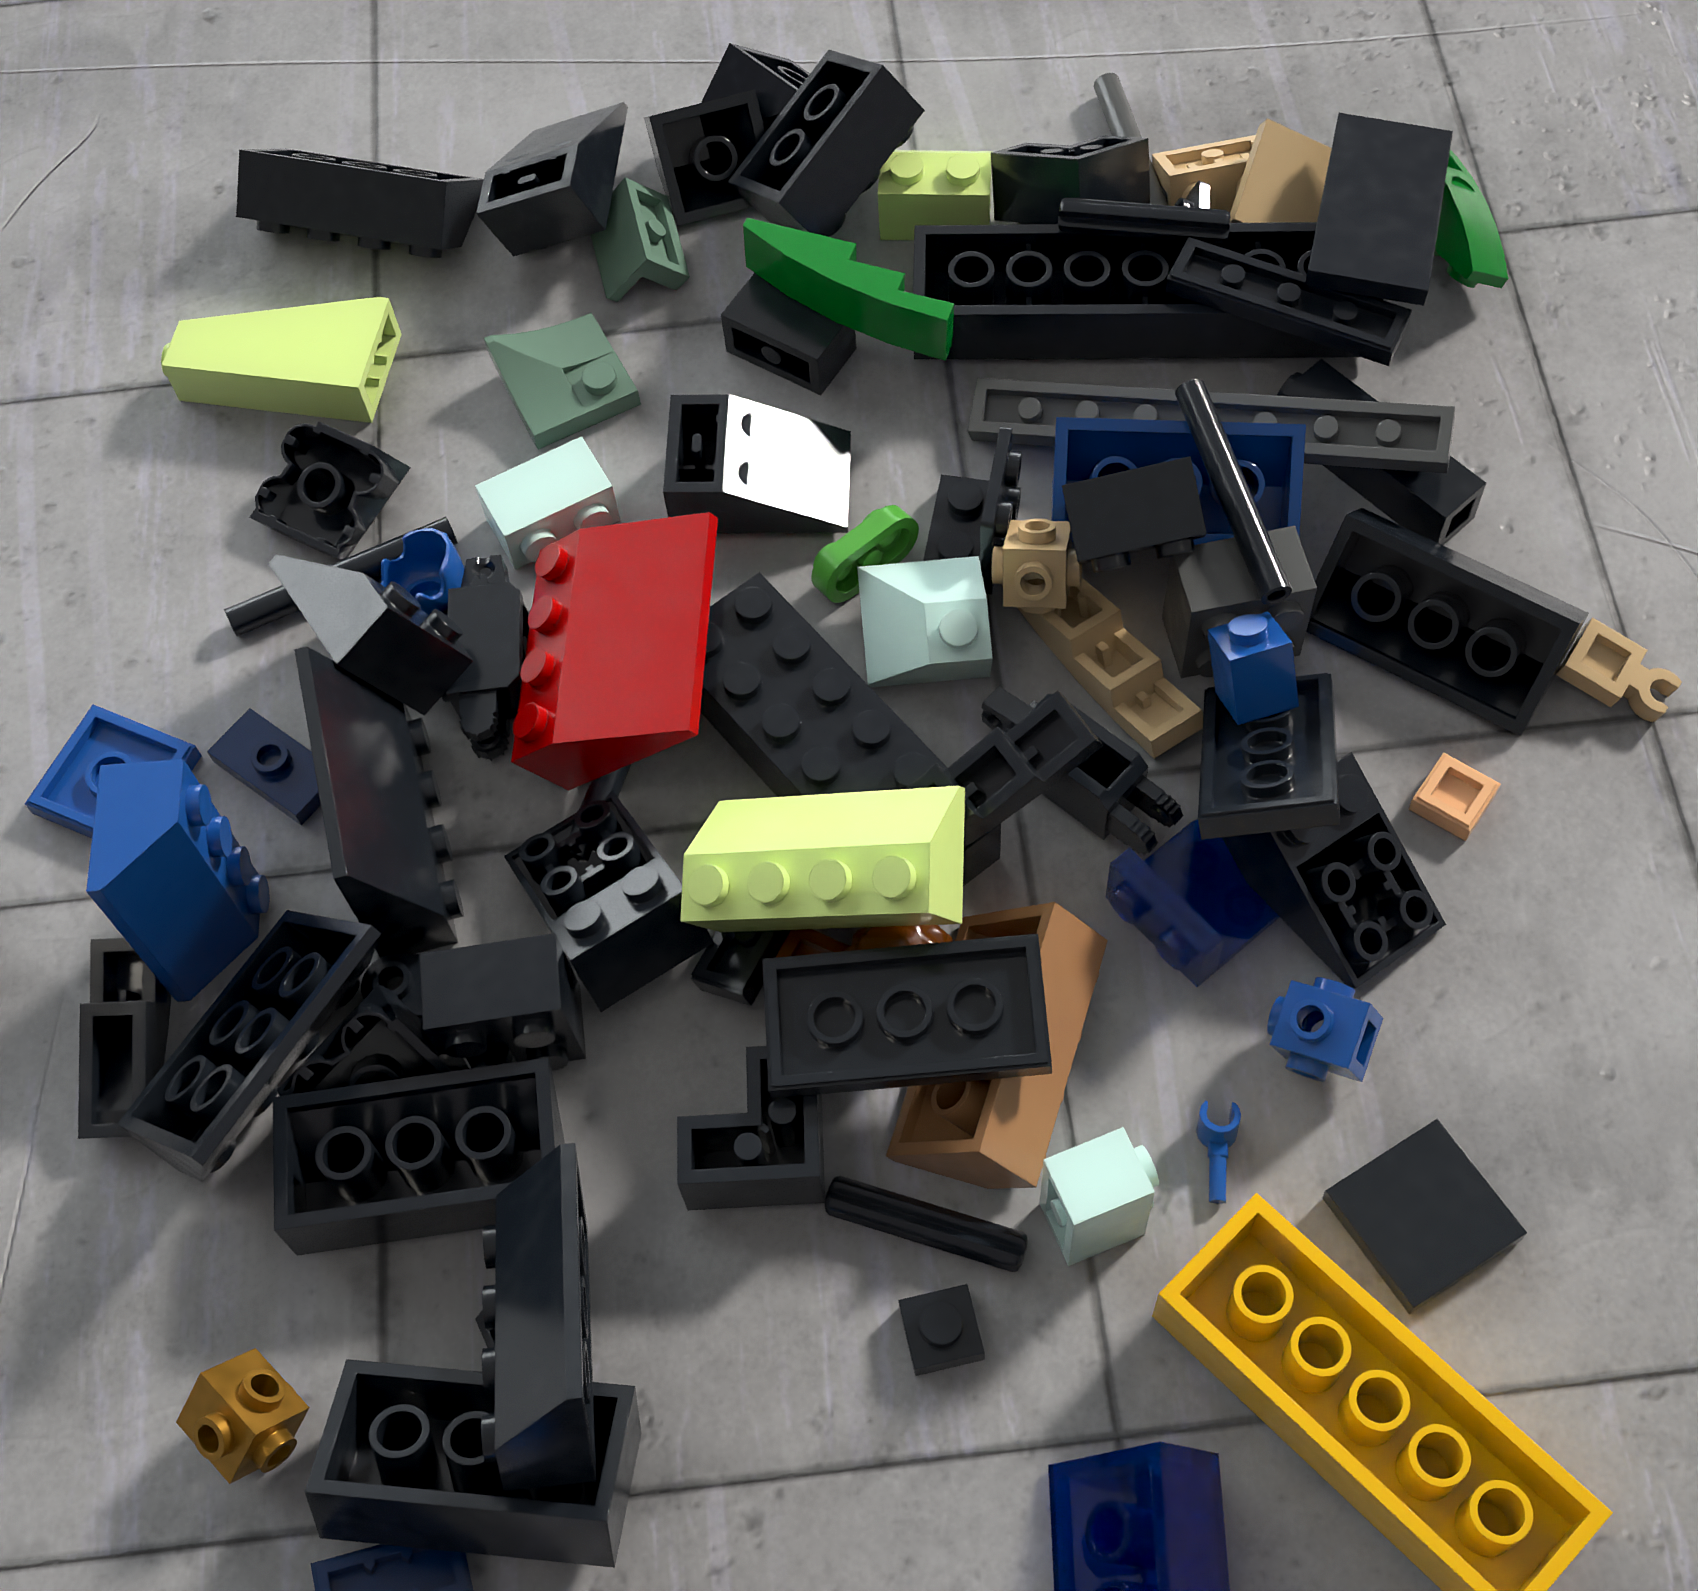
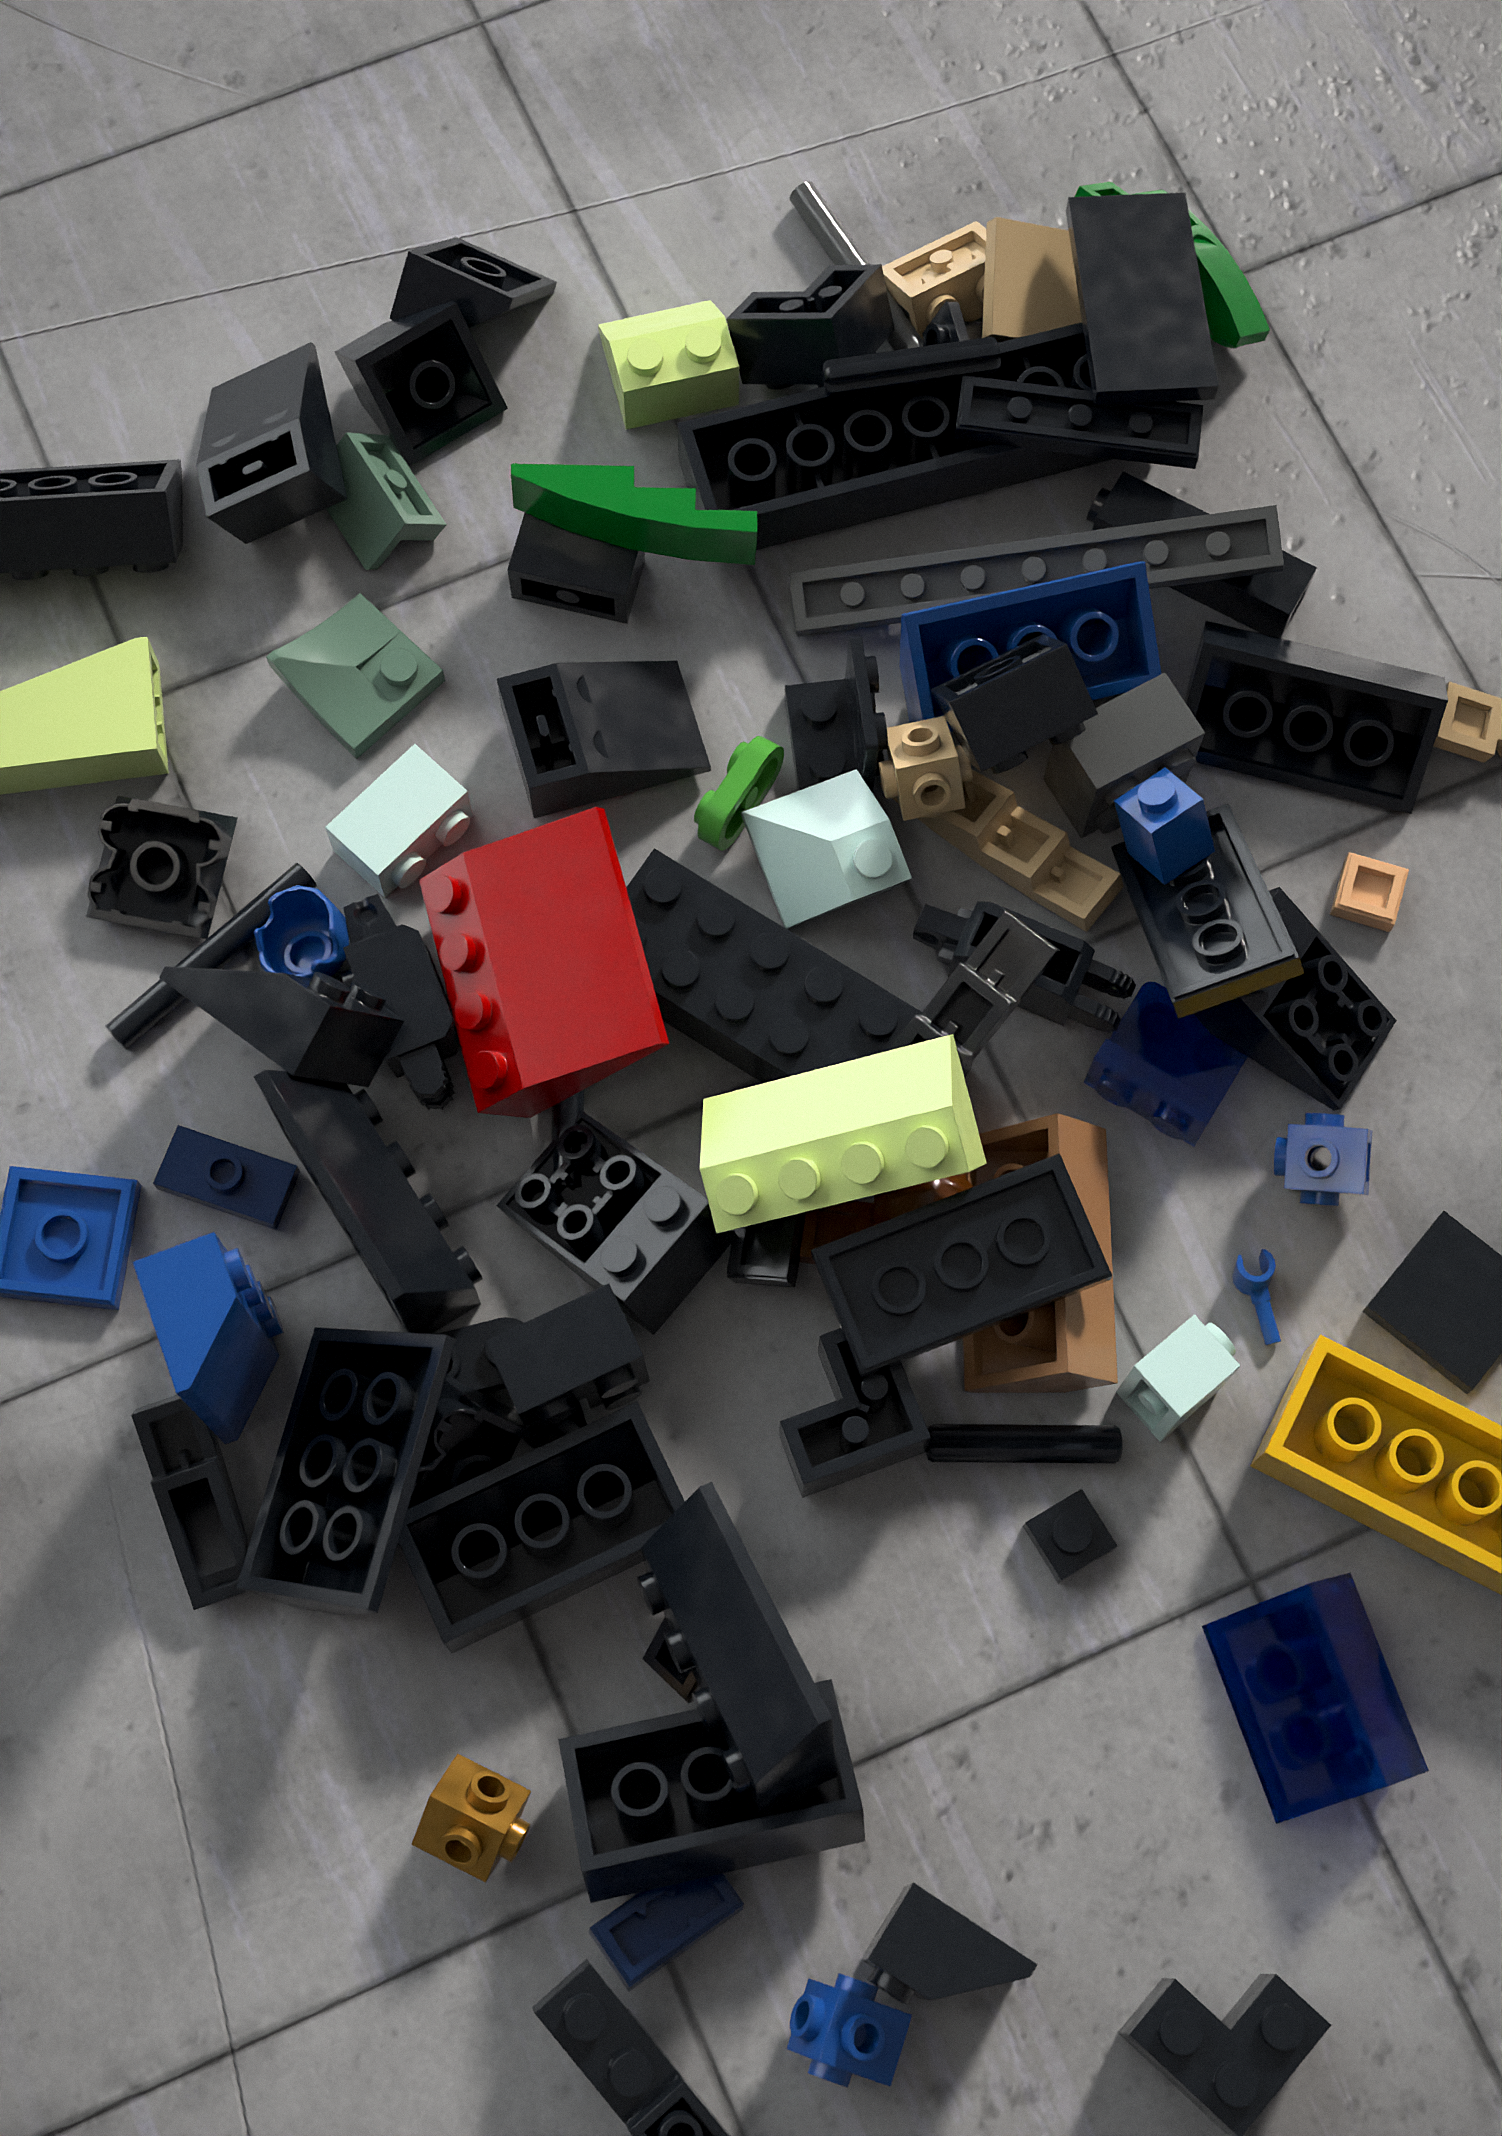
camera: 25 degrees left, 10 degrees up
(827, 144) = (555, 351): black brick -> none
(1233, 492) = (1100, 654): black piece -> none

